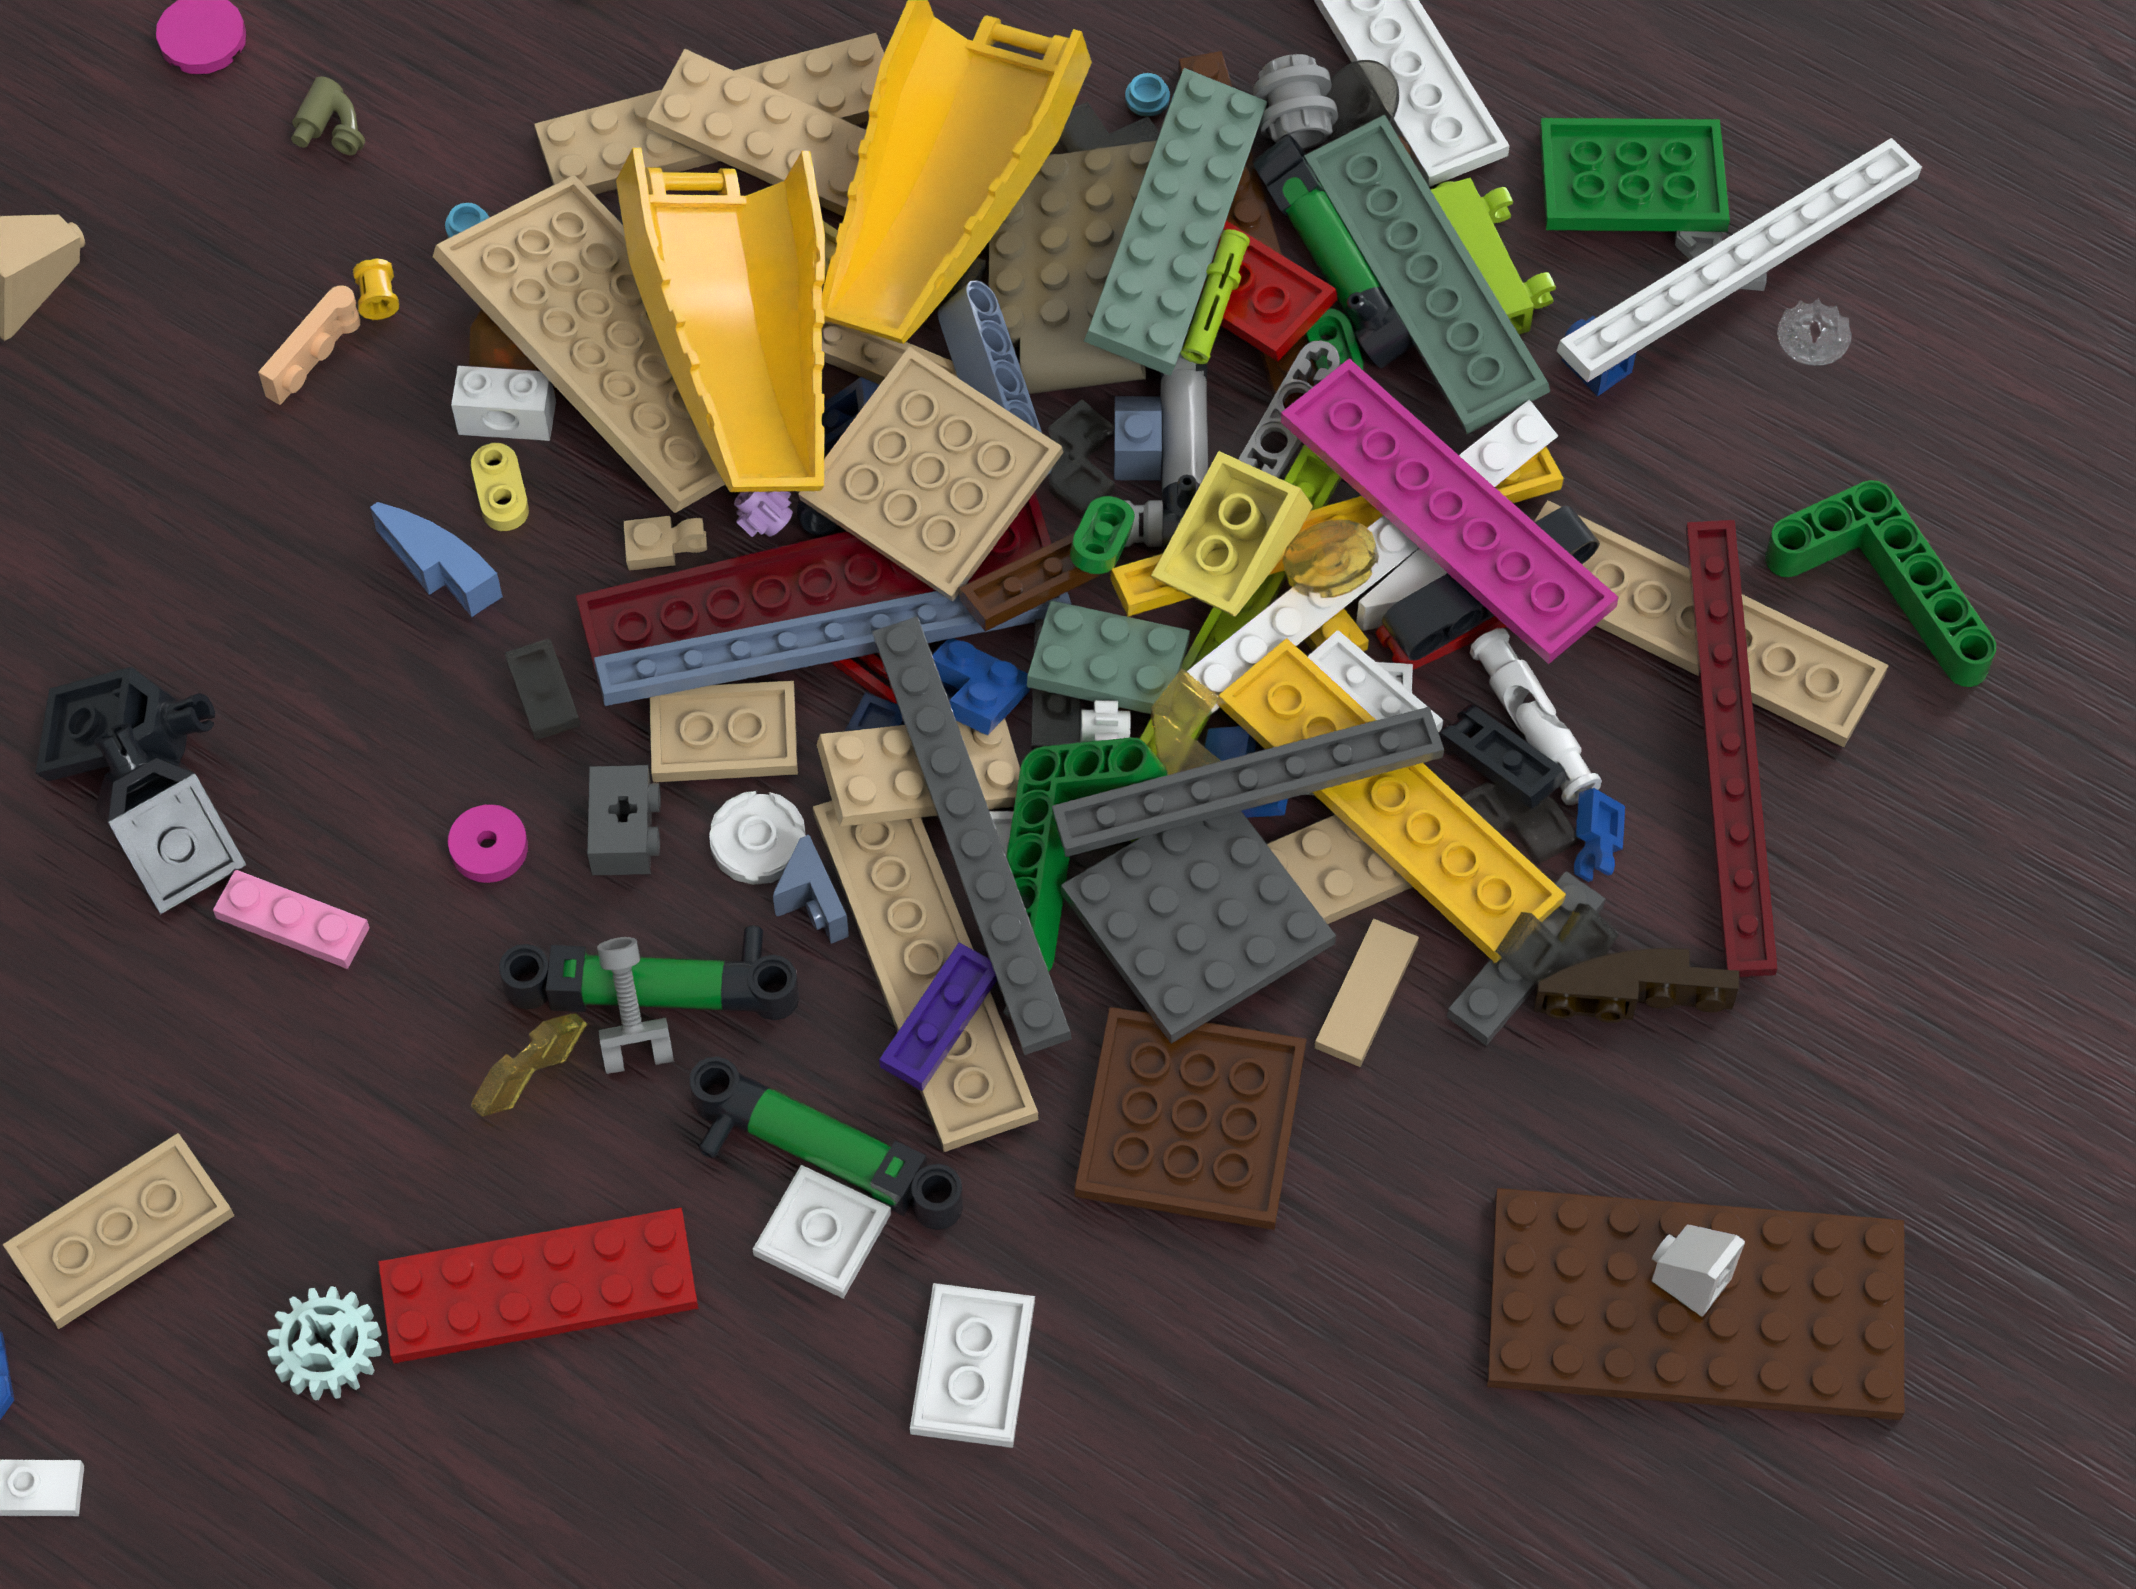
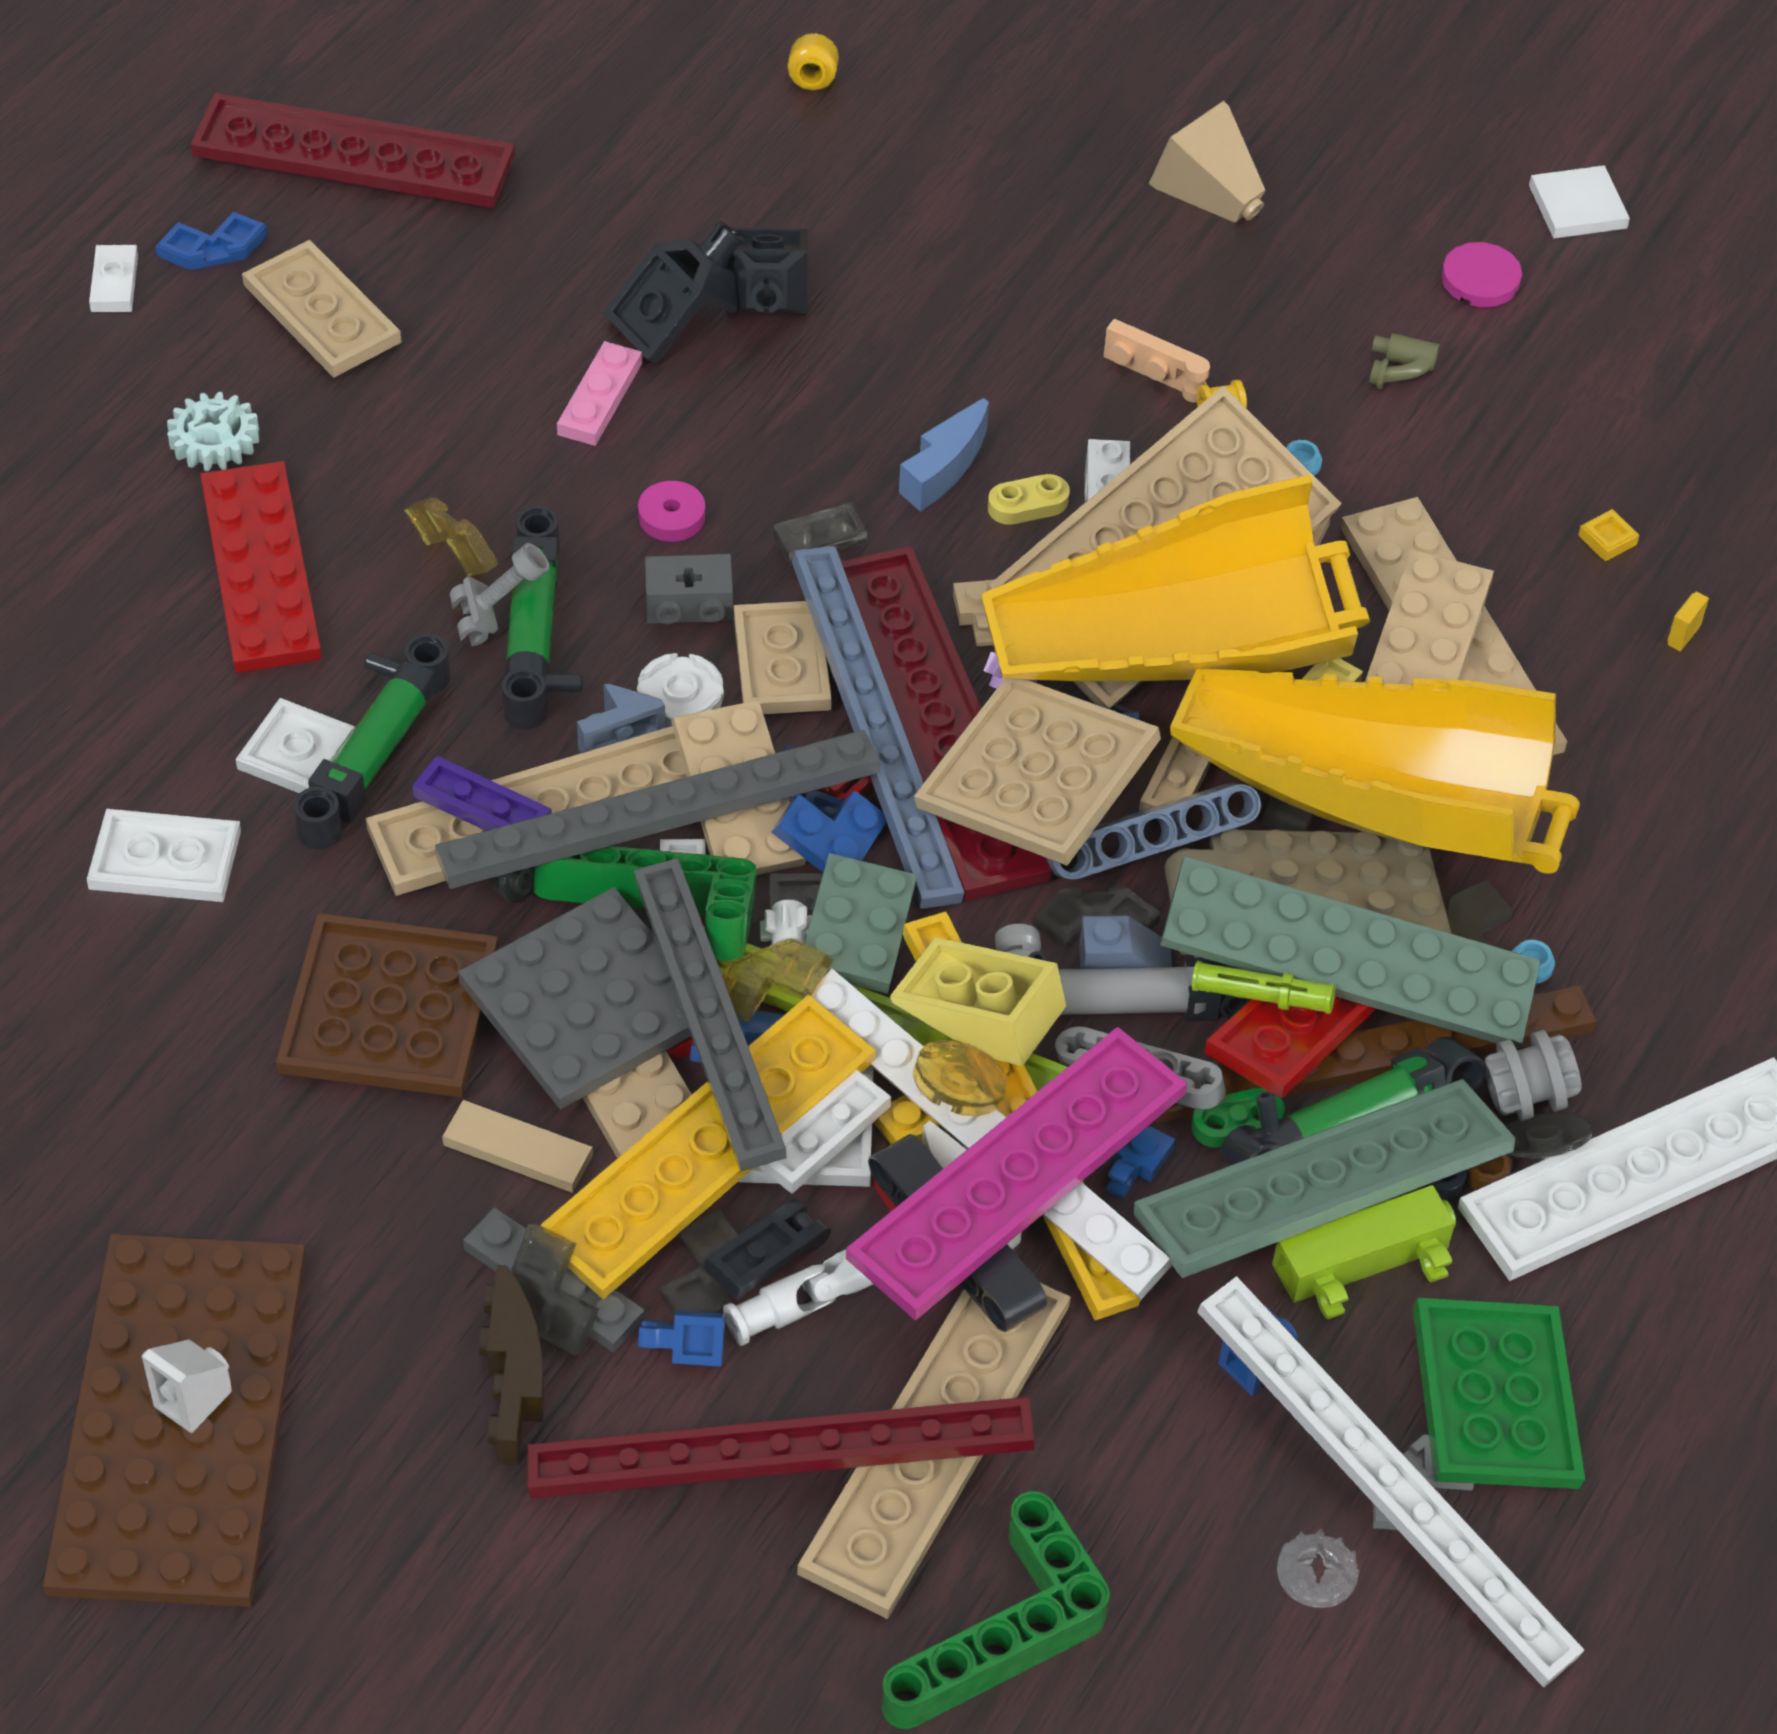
camera: 85 degrees right, 10 degrees down
(1023, 584) = (936, 859): reddish brown plate -> none
(1102, 535) = (979, 898): green plate -> none

